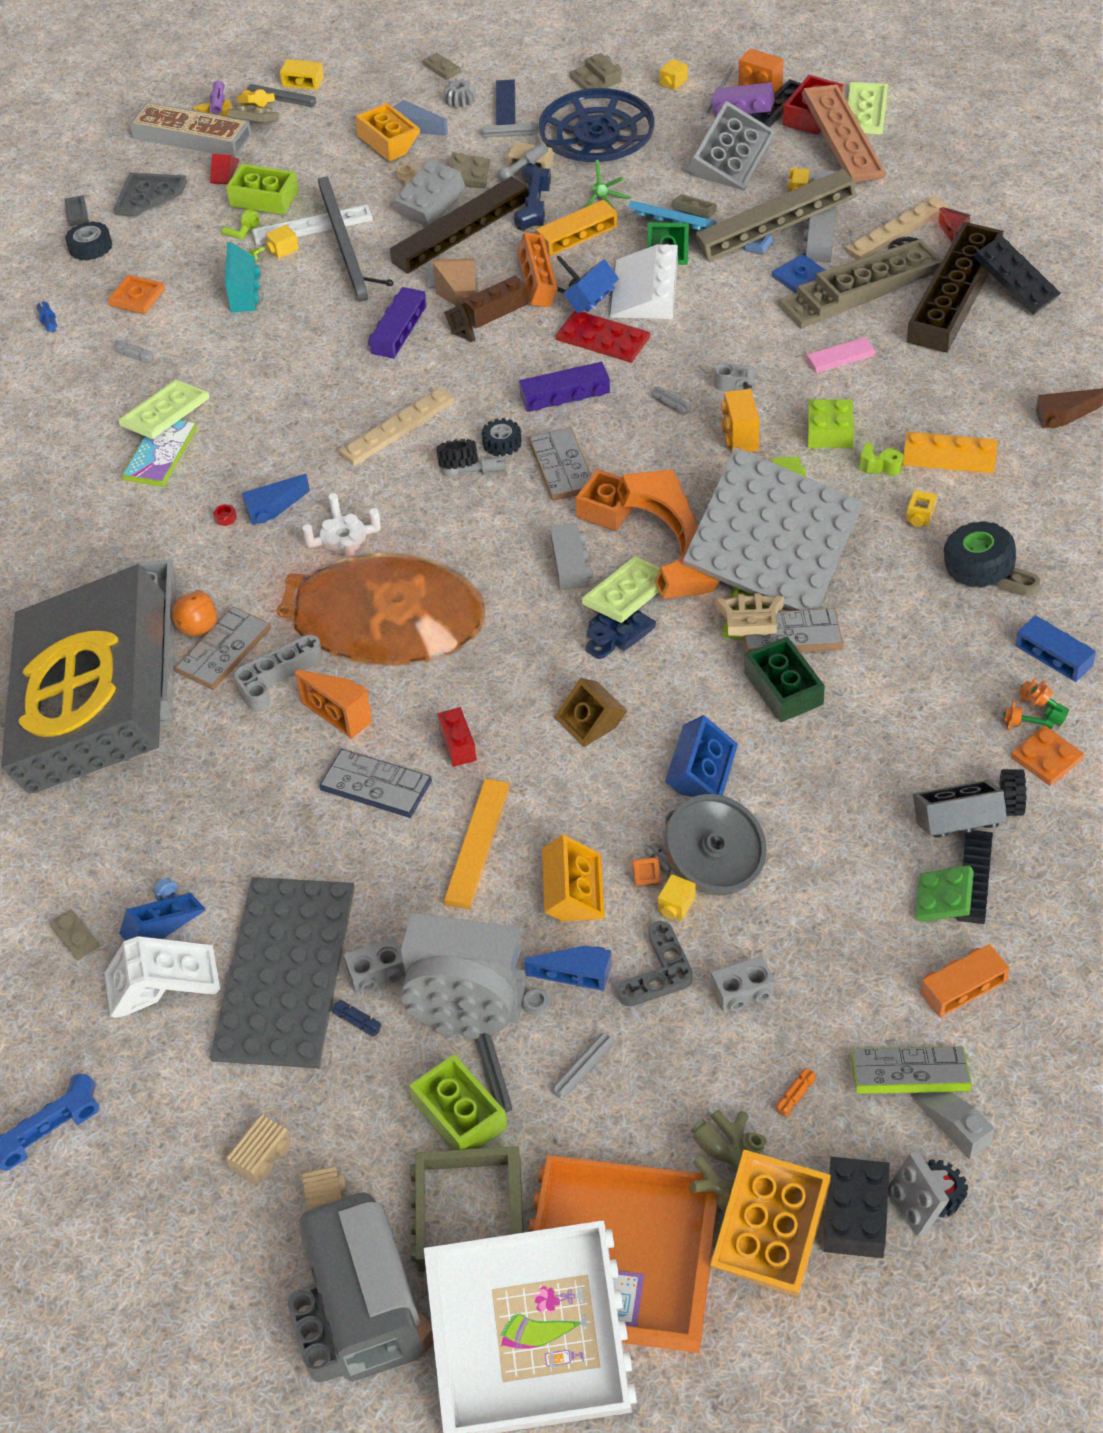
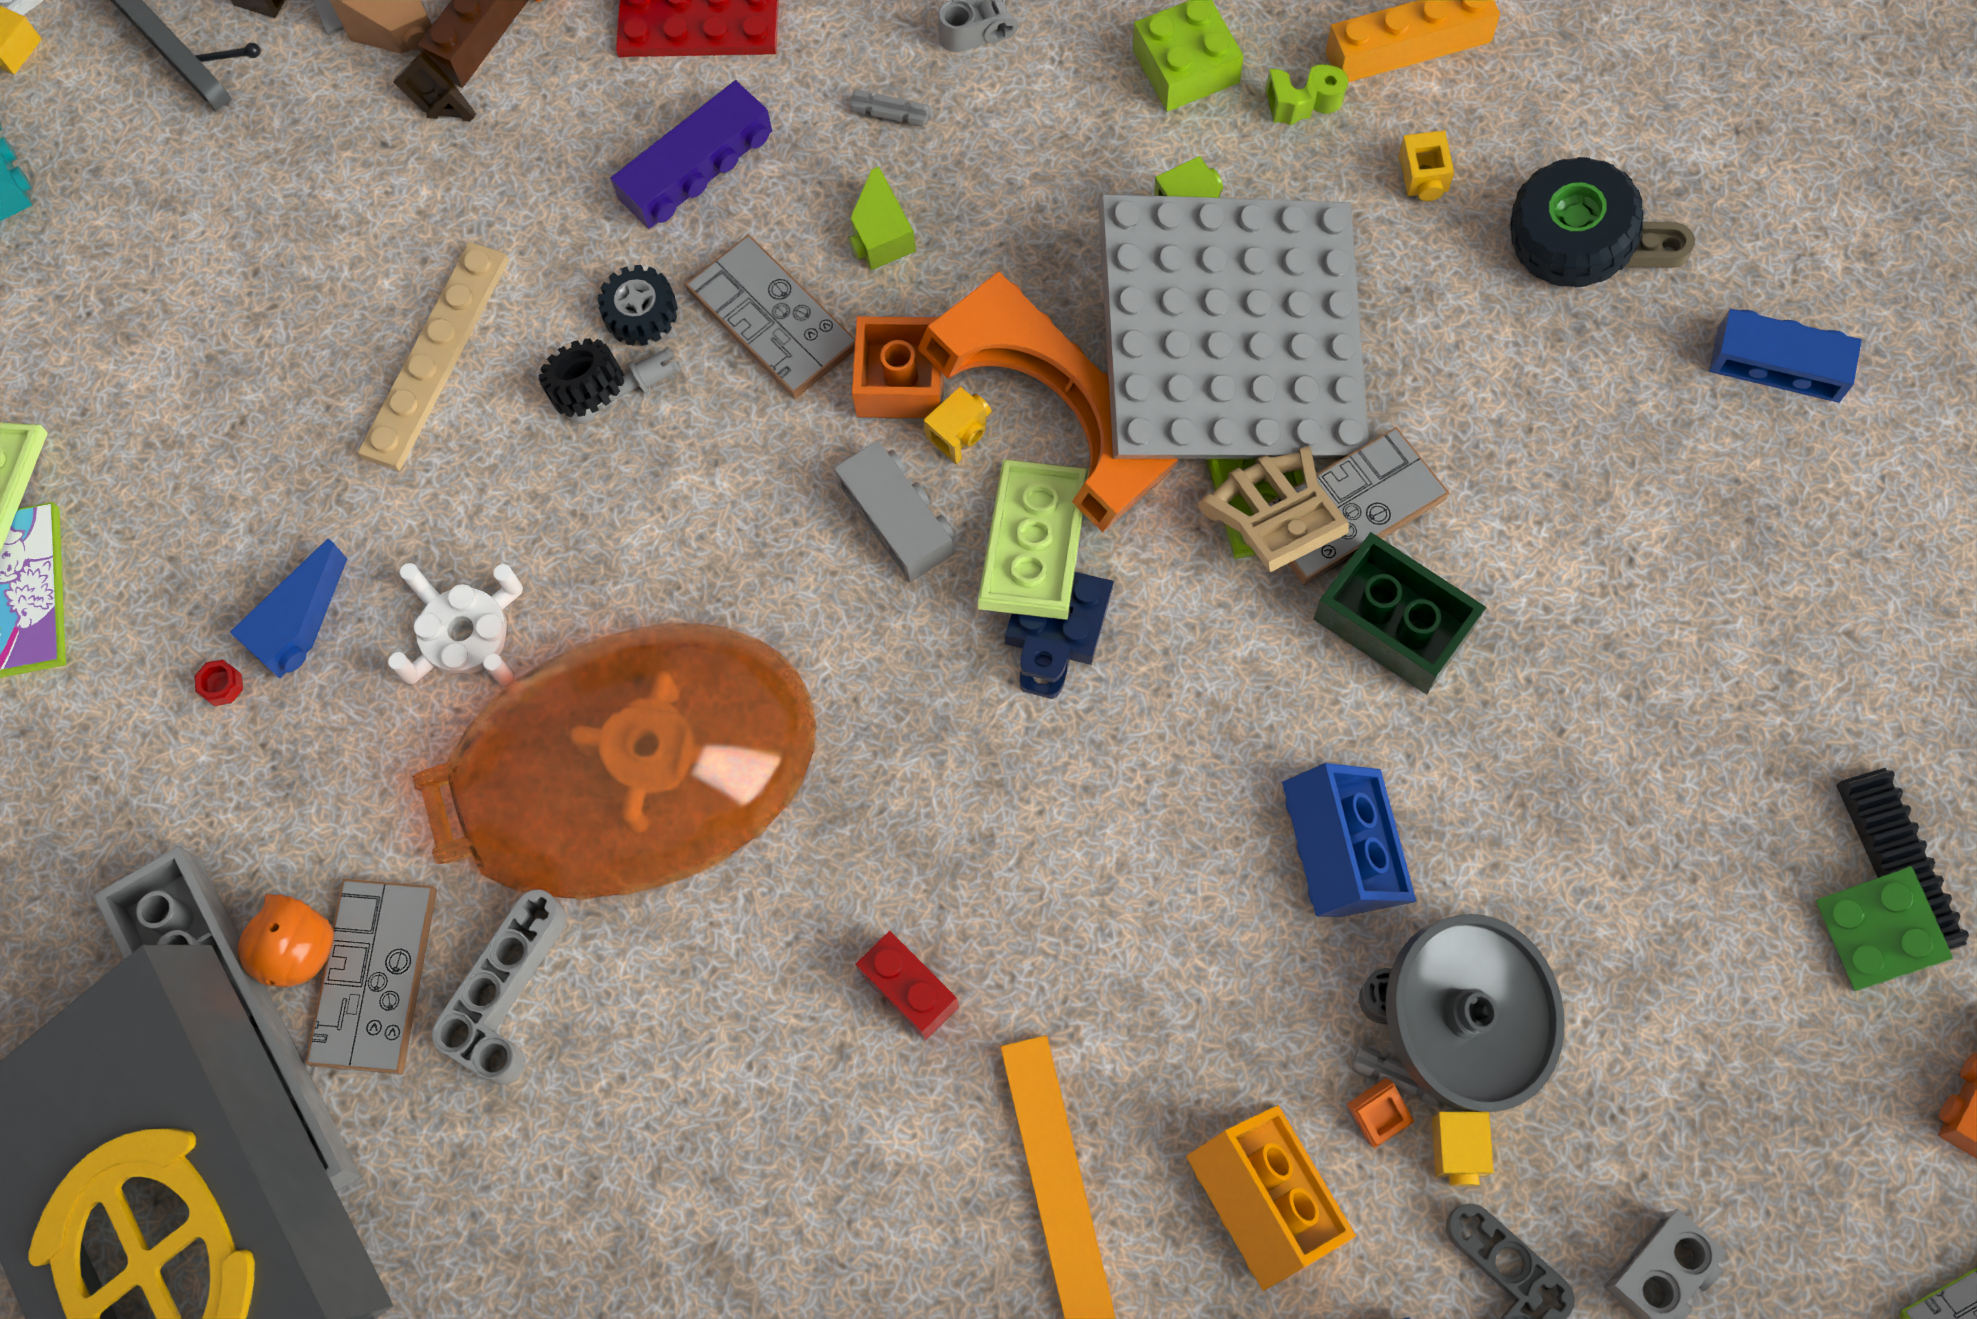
camera: 25 degrees left, 20 degrees up
(335, 700) = (660, 1015): orange slope -> none
(375, 783) = (810, 1143): light grey tile -> none
(397, 322) = (316, 134): dark purple brick -> none
(589, 712) = (1107, 824): pearl gold slope -> none
(621, 532) = (957, 423): none -> yellow brick
(634, 443) = (880, 224): none -> lime slope
(740, 420) = (1043, 111): light orange brick -> none
(960, 808) = (1828, 753): brick -> none
(1014, 788) = (1885, 679): black tyre -> none
(1040, 695) = (1835, 472): plant -> none
(1047, 755) = (1879, 569): orange plate -> none

